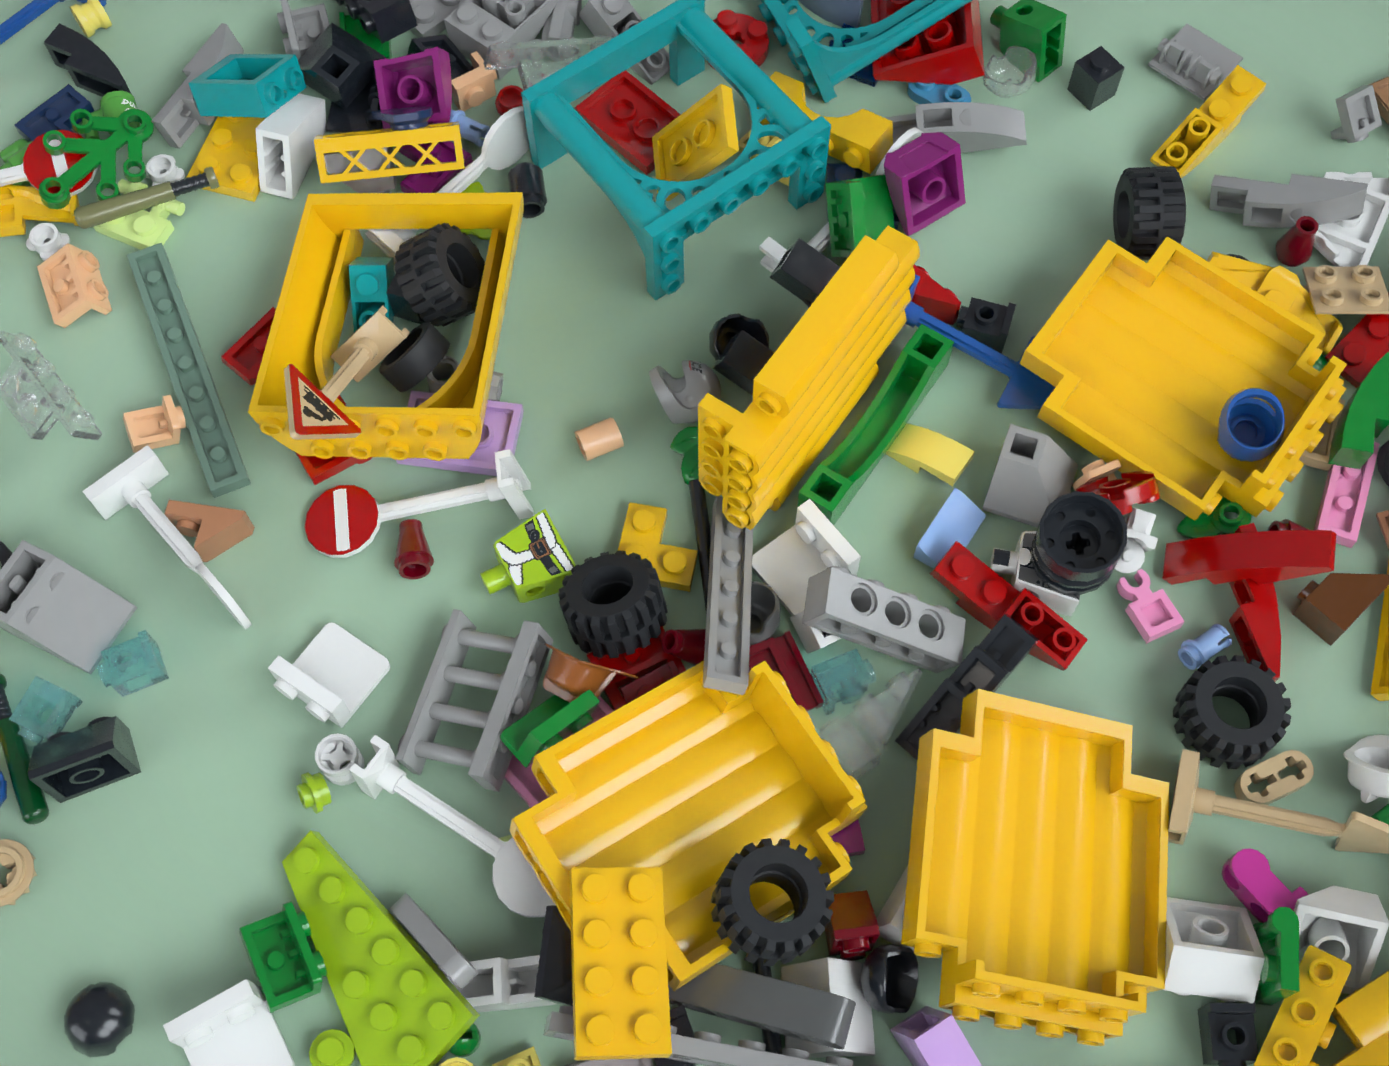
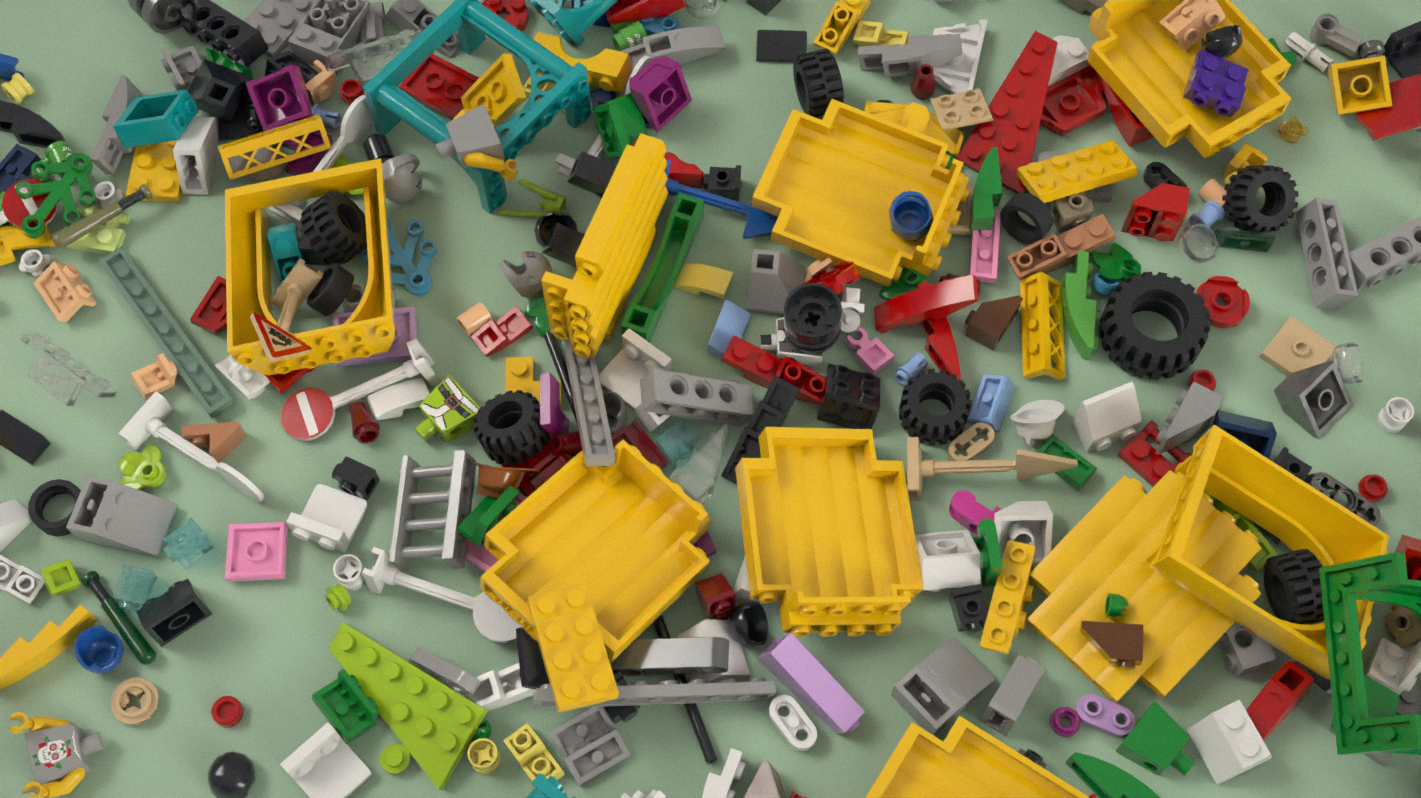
camera: 15 degrees left, 0 degrees up
(104, 547) = (143, 468): none -> lime plate
(121, 920) = (227, 711): none -> red tile
(222, 699) = (256, 551): none -> bright pink plate
(271, 456) = (246, 380): none -> white hips
(382, 626) = (355, 478): none -> black brick
(405, 117) = (279, 120): dark blue piece -> none
(462, 526) = (395, 398): none -> white slope
(524, 336) = (403, 259): none -> dark azure plant
(544, 233) = (400, 180): none -> light grey helmet
(631, 467) = (500, 334): none -> slope
(656, 195) = (476, 142): none -> light grey torso
(671, 601) = (551, 416): none -> magenta tile
(739, 300) = (549, 202): none -> lime plant
(793, 874) = (668, 568): black tyre -> none
(896, 98) = (628, 35): none -> bright green piece
(1103, 152) = (780, 45): none -> black slope
(1108, 671) = (850, 398): none -> black bracket
(1239, 162) = (874, 34): none -> light yellow slope
(1317, 720) = (992, 401): none -> light blue slope

